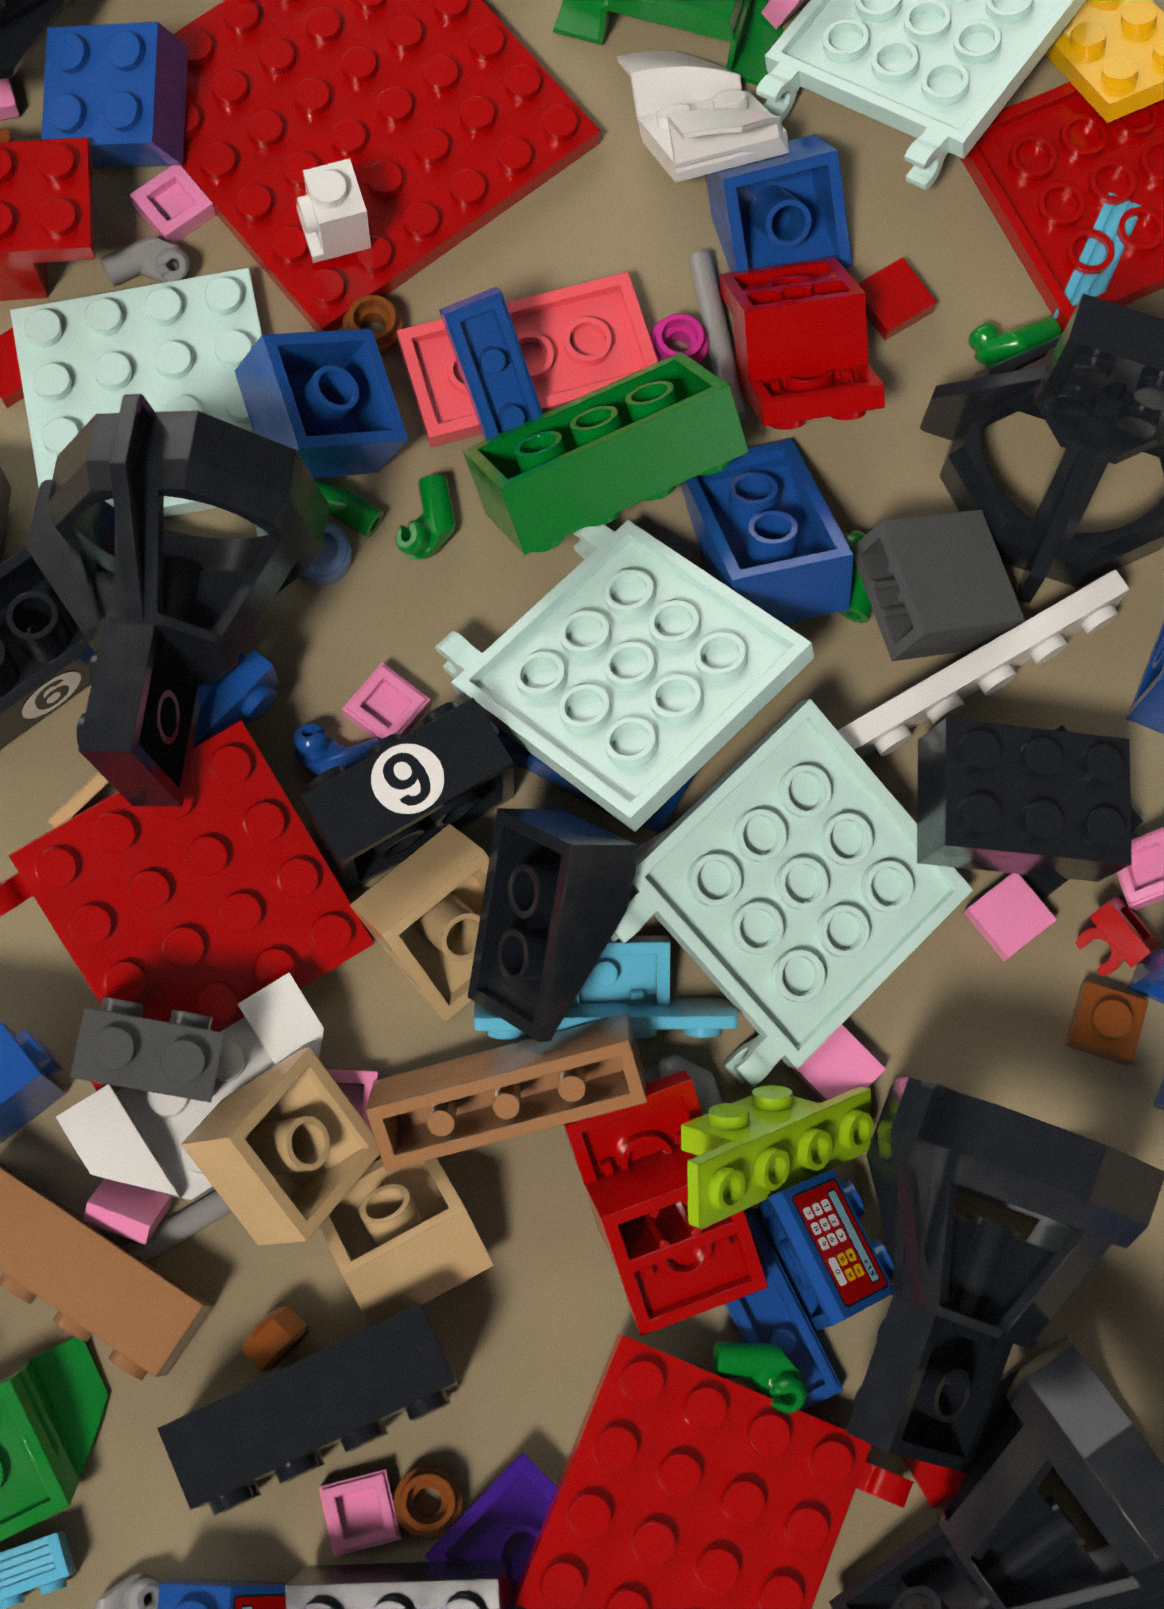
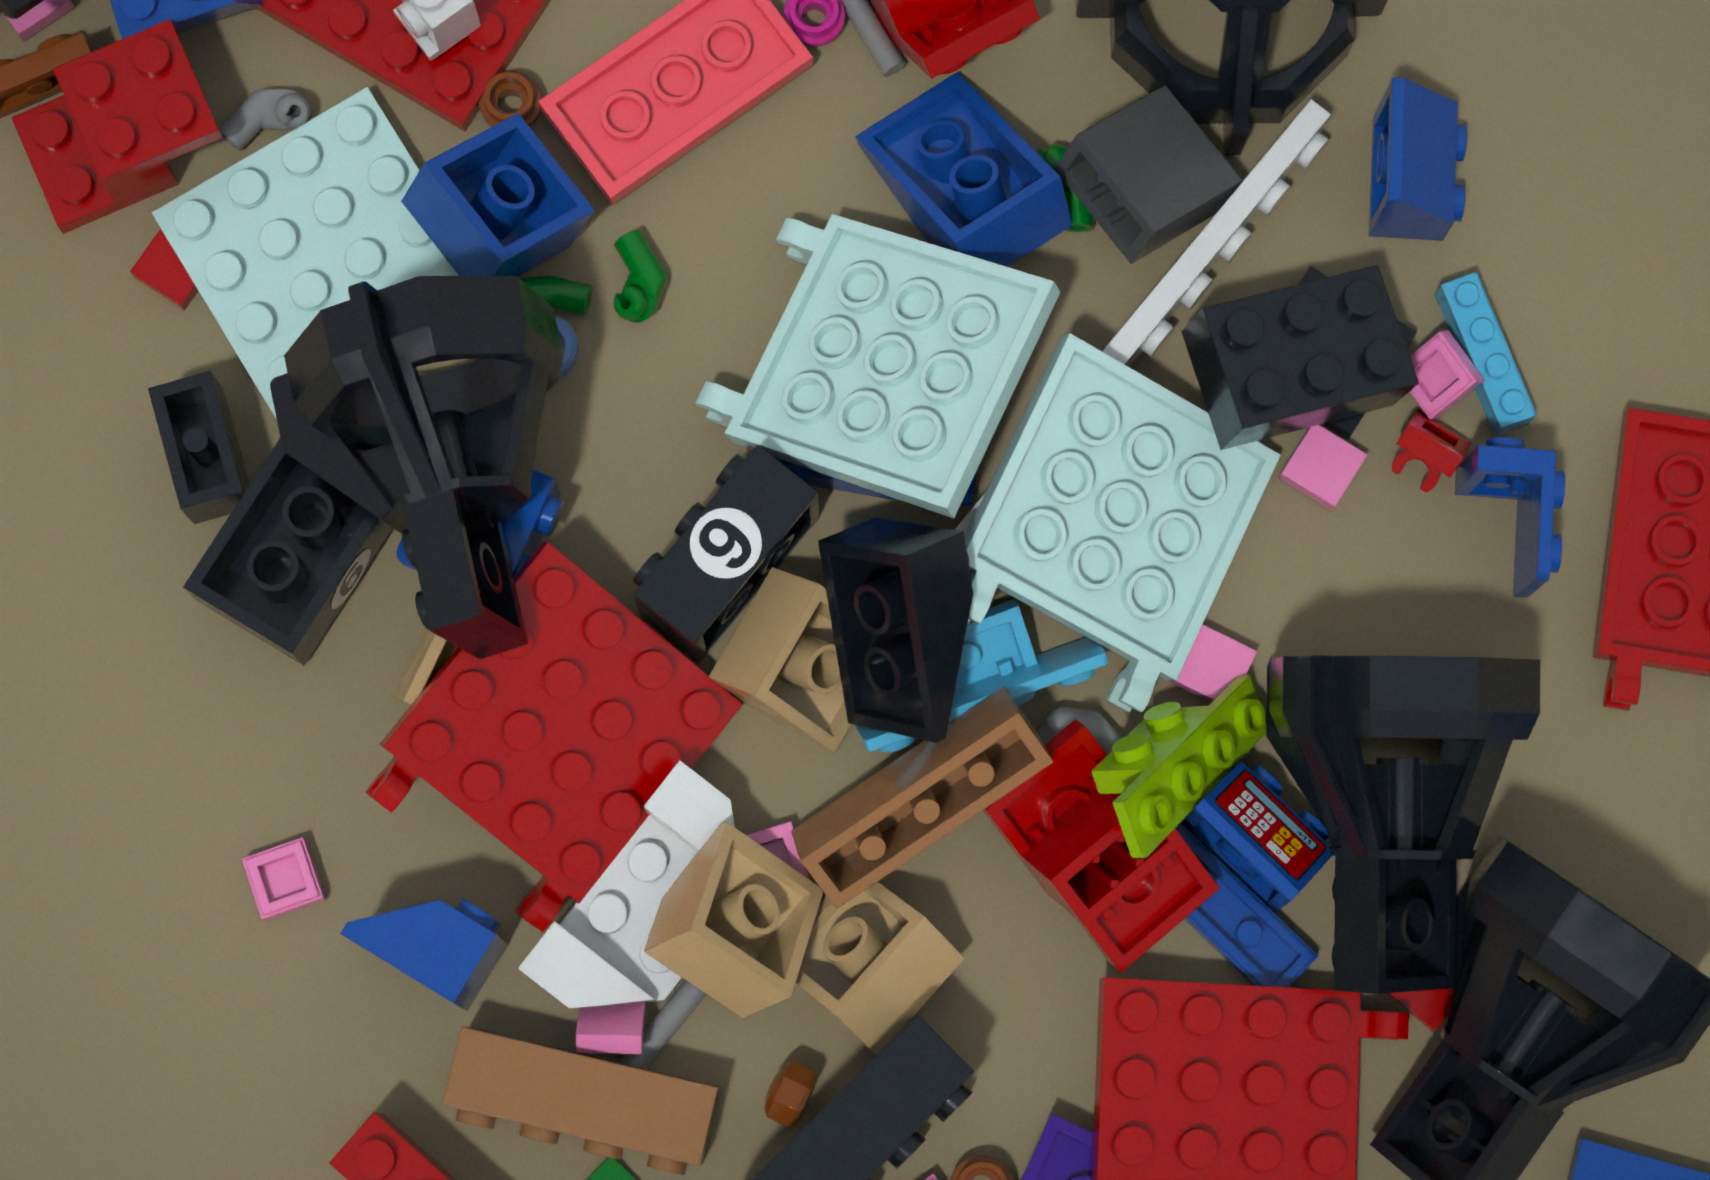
camera: 15 degrees left, 5 degrees up
(148, 1054) = (585, 883): dark grey brick -> none
(172, 204) = (265, 47): bright pink tile -> none
(319, 752) = (632, 543): blue arm -> none
(386, 704) = (667, 475): bright pink tile -> none
(491, 362) = (662, 125): blue tile -> none
(606, 452) = (788, 155): green brick -> none
(766, 1368) = (1244, 961): green arm -> none
(1106, 1023) = (1445, 535): dark orange plate -> none

